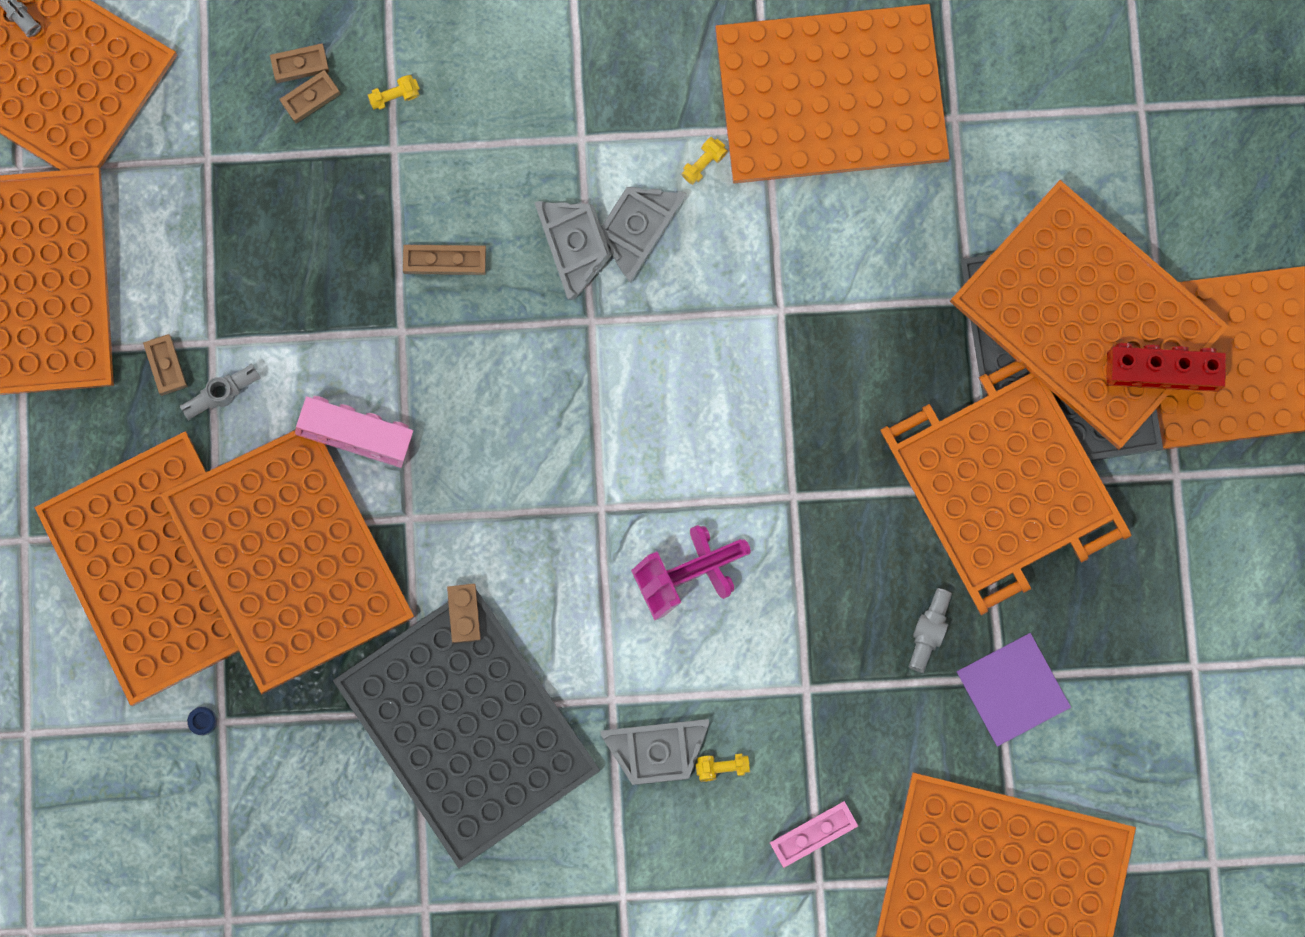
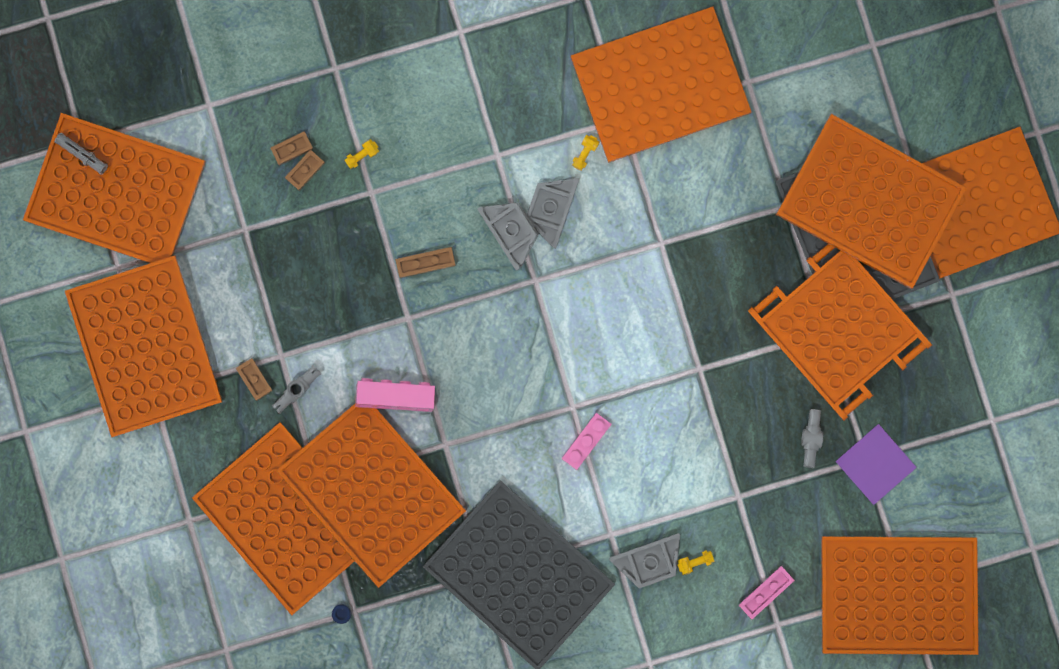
camera: 15 degrees left, 5 degrees up
(464, 613) = (499, 501): medium nougat plate -> none
(608, 560) = (586, 441): none -> bright pink plate
(659, 584) = (625, 452): dark pink piece -> none
(1166, 368) = (931, 228): red brick -> none

